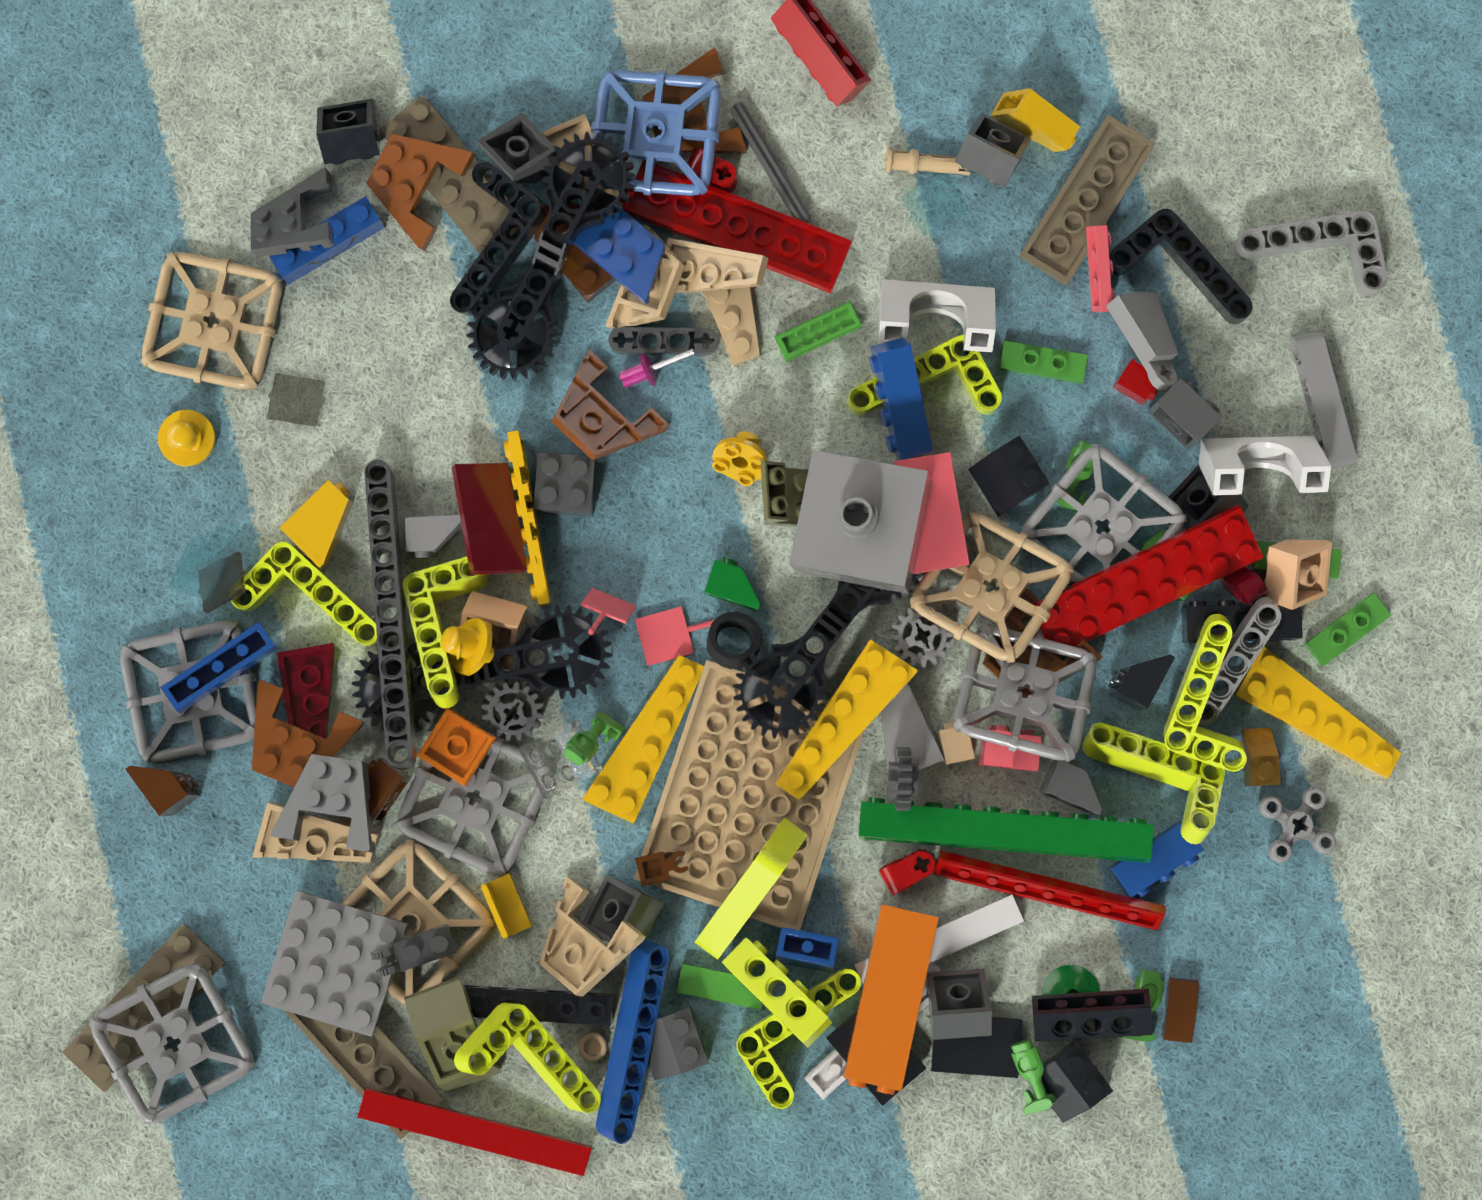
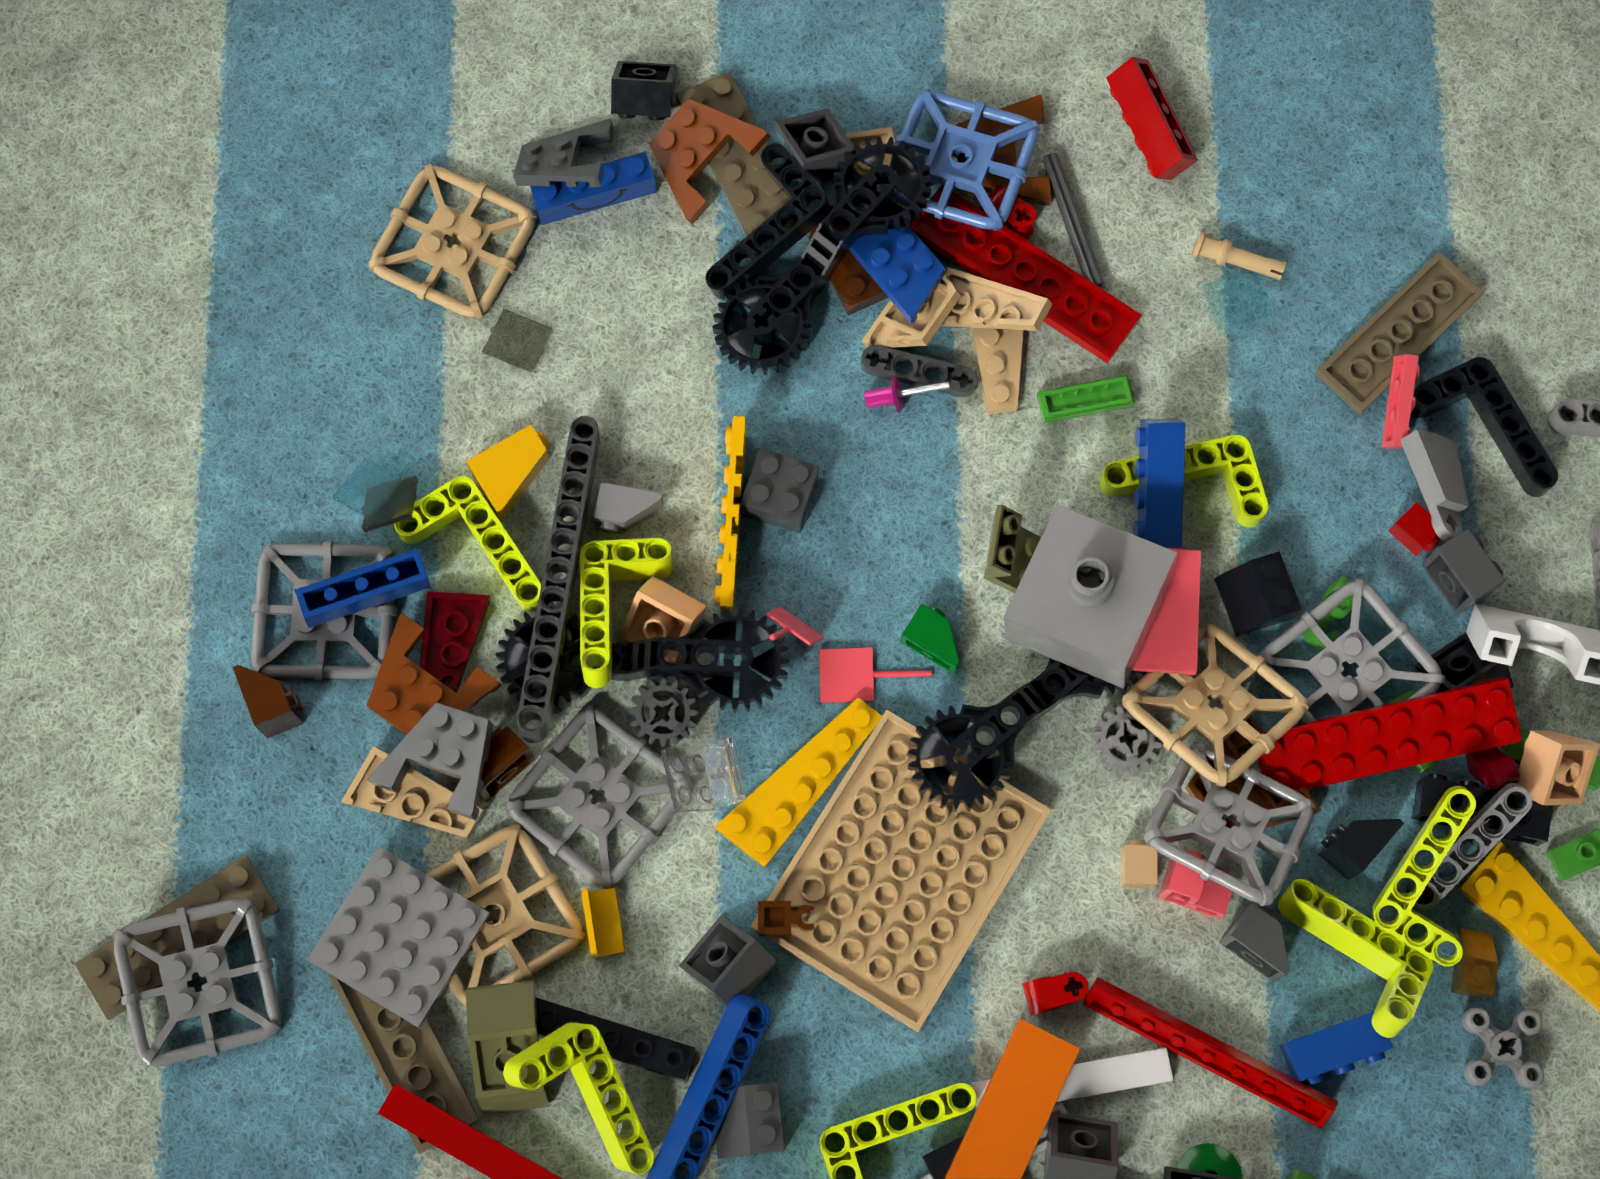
camera: 10 degrees right, 10 degrees down
(186, 438) = (393, 351): yellow plate -> none
(416, 950) = (493, 943): dark grey hinge -> none
(456, 746) = (593, 735): orange tile -> none
(468, 645) = (635, 627): yellow plate -> none
(489, 518) = (690, 504): dark red tile -> none
(576, 953) = (668, 992): tan wing -> none
(585, 743) = (734, 764): bright green piece -> none
(592, 1046) = (658, 1103): tan tile -> none
(594, 422) = (827, 432): dark orange wing -> none
(715, 986) = (818, 1071): bright green tile -> none
(739, 458) = (971, 506): yellow plate -> none
(741, 621) = (923, 674): black tyre -> none
(751, 888) = (876, 966): neon yellow beam -> none
(805, 1028) = (903, 1134): neon yellow brick -> none
(807, 950) = (924, 1051): blue brick -> none
(856, 703) = (1043, 790): yellow wing -> none
(903, 779) = (1074, 884): dark grey gear -> none
(906, 727) = (1086, 838): light grey piece -> none
(967, 304) = (1252, 408): white arch -> none
(992, 150) = (1310, 256): dark grey brick -> none
(1007, 831) = (1177, 973): green brick -> none
(1037, 119) = (1363, 238): yellow slope -> none
(1043, 362) = (1319, 486): bright green plate -> none

